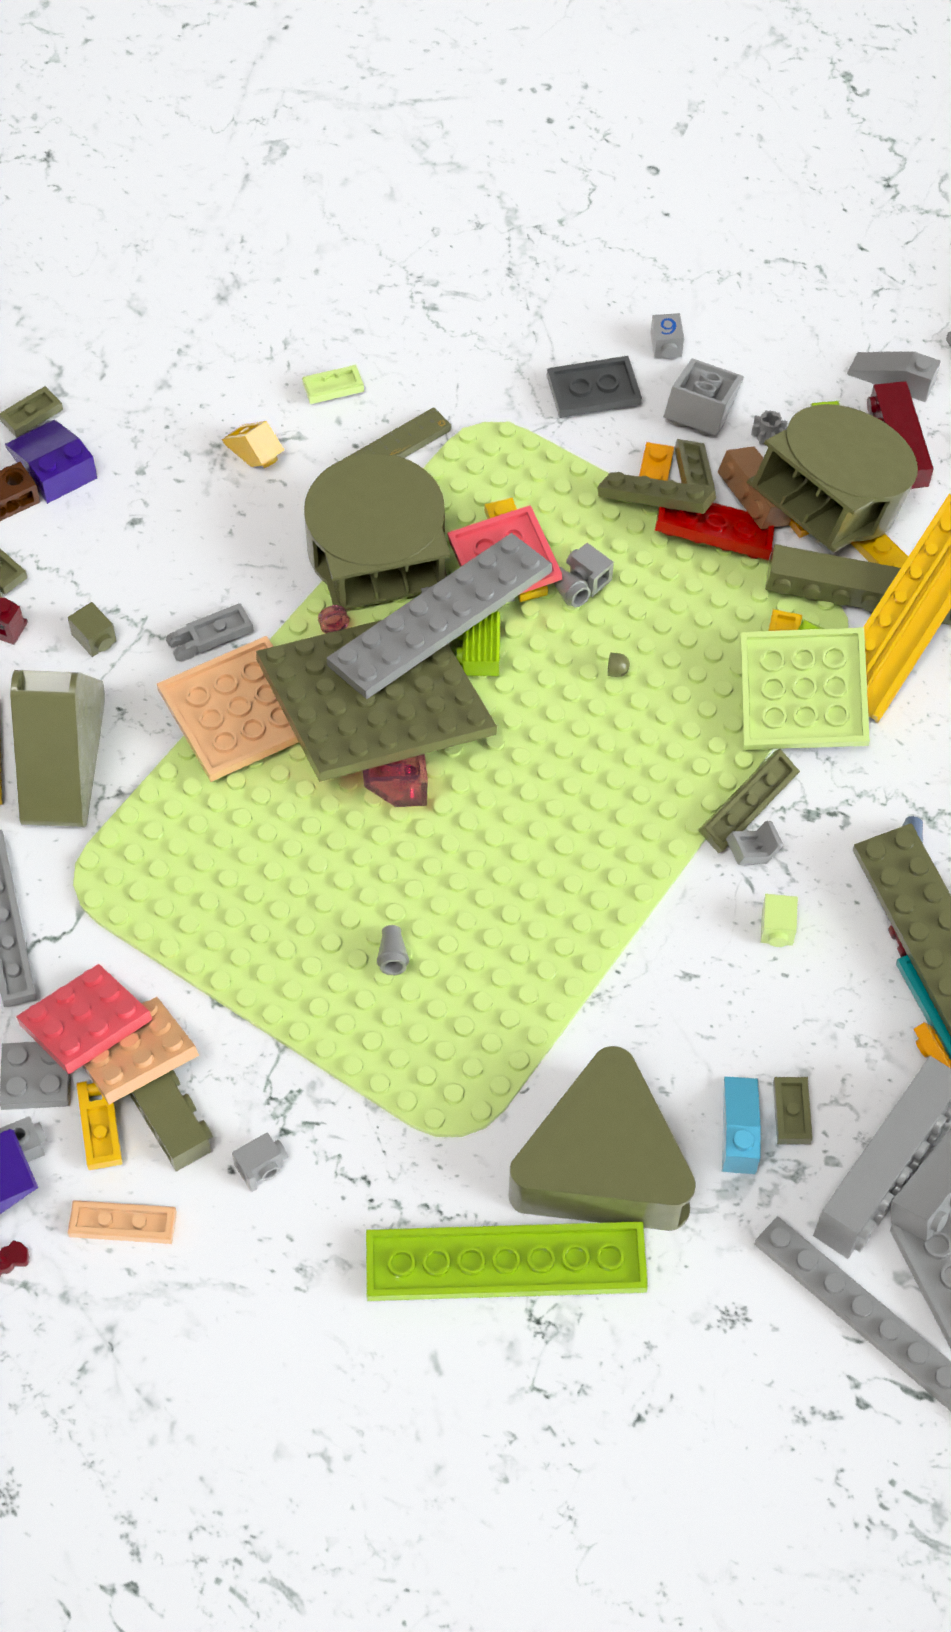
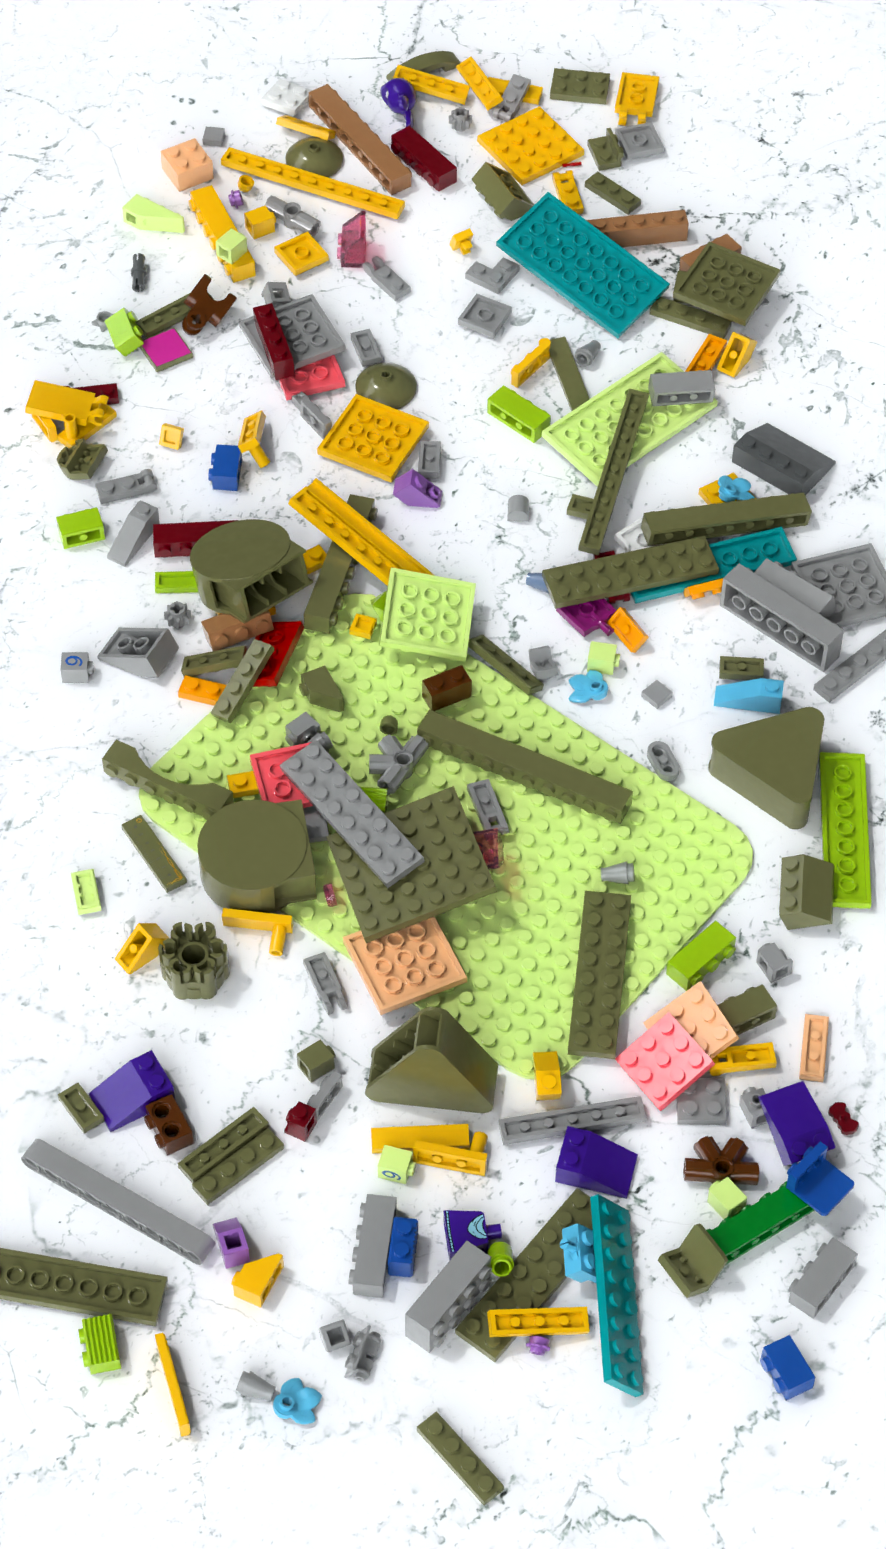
camera: 85 degrees left, 5 degrees down
(47, 645) = (328, 1090): none -> light grey plate
(62, 878) = (547, 1076): none -> yellow slope
(225, 488) = (183, 951): none -> olive piece
(229, 936) = (599, 975): none -> olive plate
(265, 1065) = (701, 956): none -> lime brick
(294, 573) = (277, 923): none -> yellow piece
(376, 1198) = (806, 892): none -> olive slope
(488, 786) = (487, 806): none -> light grey plate
(515, 397) = (203, 799): none -> olive arch
(548, 667) = (396, 761): none -> light grey piece
(560, 828) = (525, 766): none -> olive brick
(594, 386) = (117, 718): dark grey plate -> none
(602, 1008) = (663, 763): none -> light grey plate
(665, 584) = (321, 689): none -> olive slope
(683, 723) = (446, 688): none -> reddish brown brick
(728, 907) = (588, 687): none -> medium azure plate
(729, 998) = (656, 694): none -> light grey tile
(838, 951) = (627, 629): none -> light orange plate
(854, 904) = (589, 616): none -> magenta plate
(893, 316) = (80, 528): none -> lime brick

